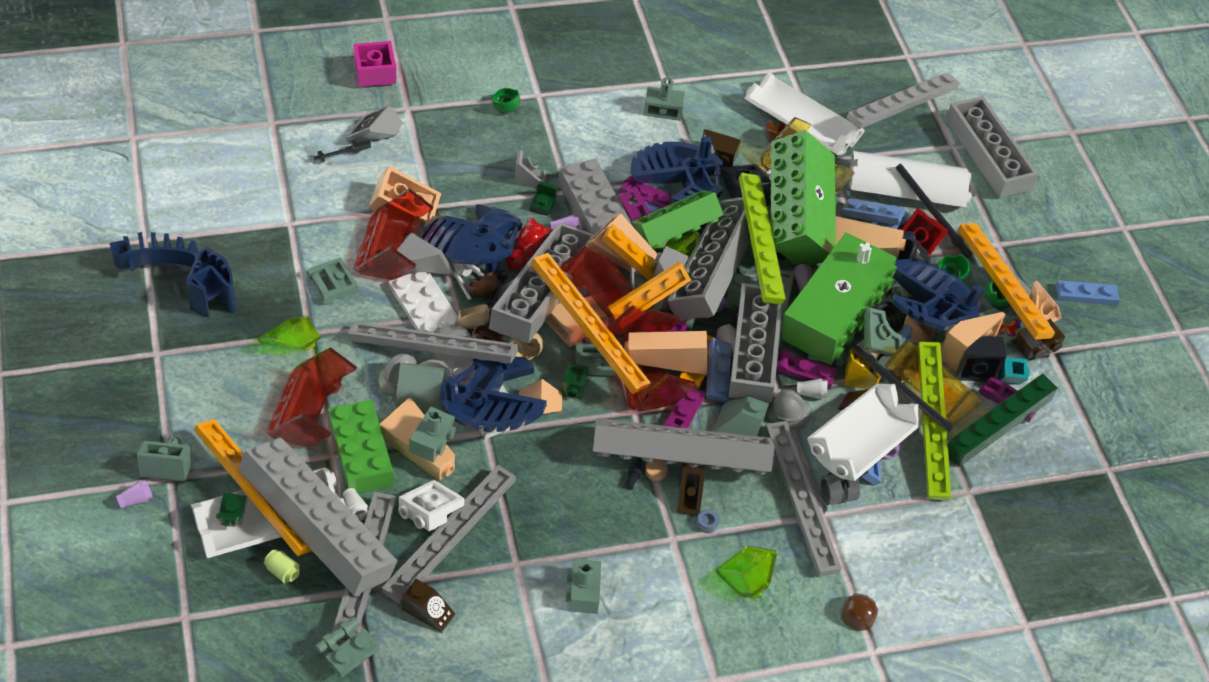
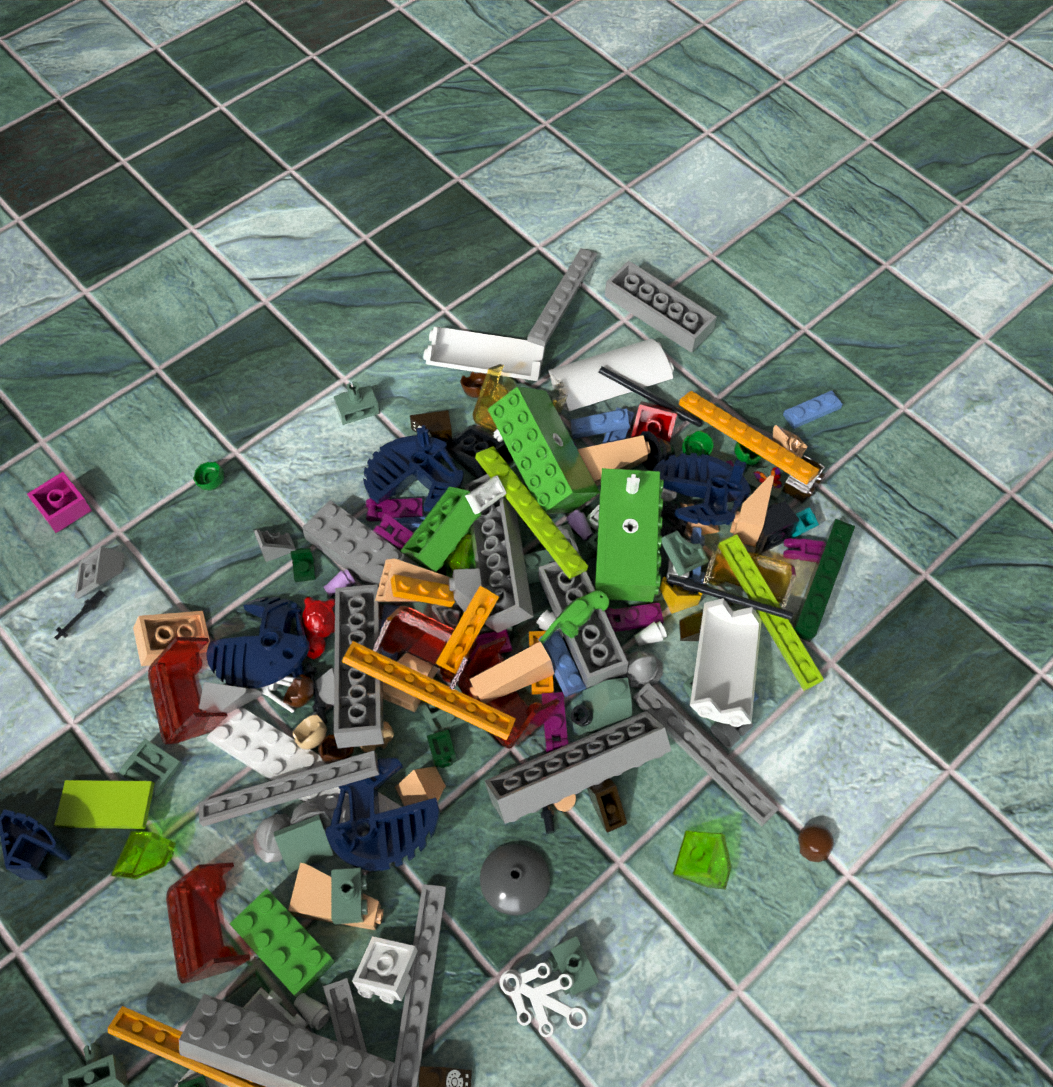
camera: 25 degrees left, 10 degrees up
(282, 286) = (104, 804): none -> lime tile
(542, 588) = (540, 998): none -> white plant
(574, 513) = (509, 894): none -> dark grey dish
(707, 521) = (638, 827): sand blue tile -> none
(711, 417) = (584, 721): none -> black bush
(728, 204) = (485, 494): none -> white plate
(750, 328) = (577, 614): none -> bright green animal

